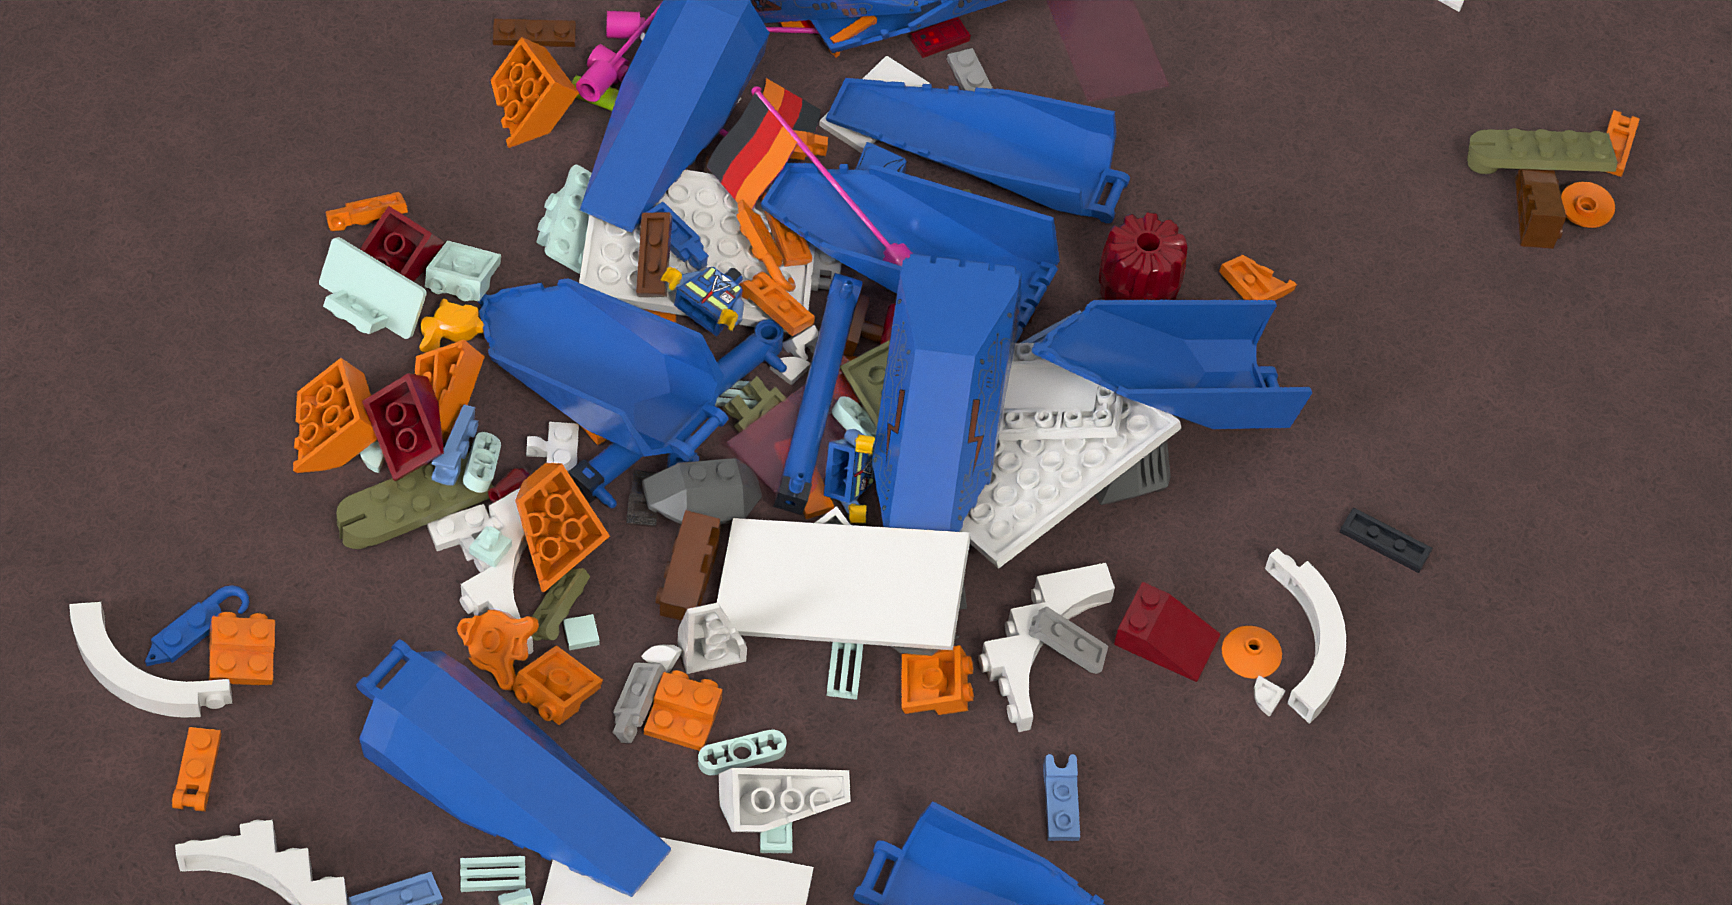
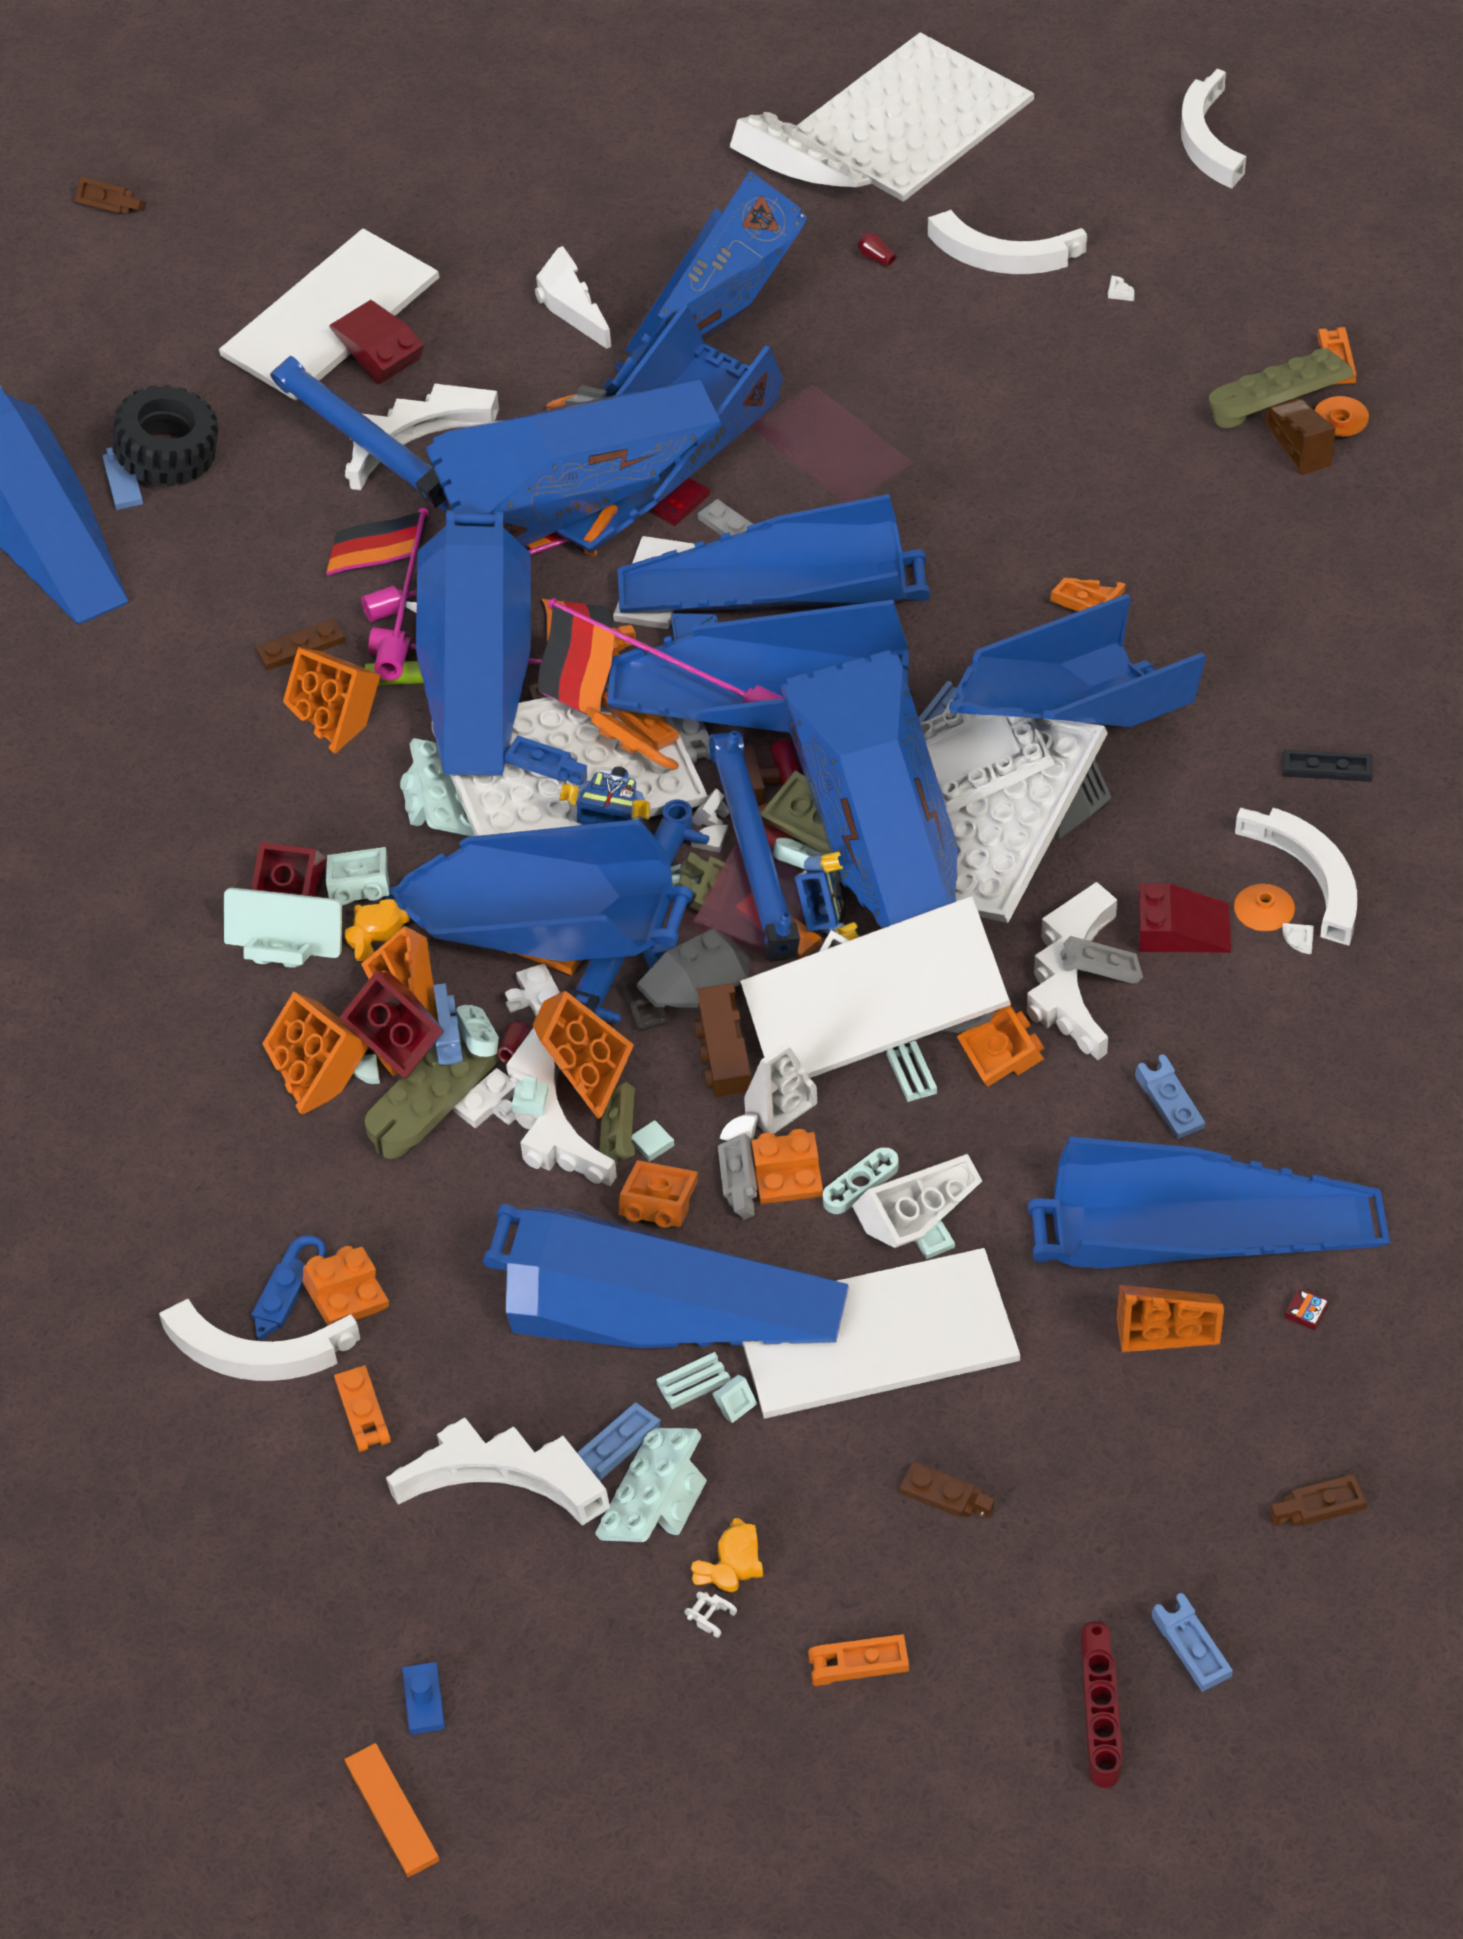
camera: 15 degrees left, 5 degrees down
(364, 211) = (232, 861): orange hinge -> none
(496, 642) = (582, 1178): orange tile -> none
(654, 254) = (537, 783): reddish brown plate -> none
(777, 303) = (673, 782): orange plate -> none
(1143, 260) = (982, 610): dark red wheel -> none

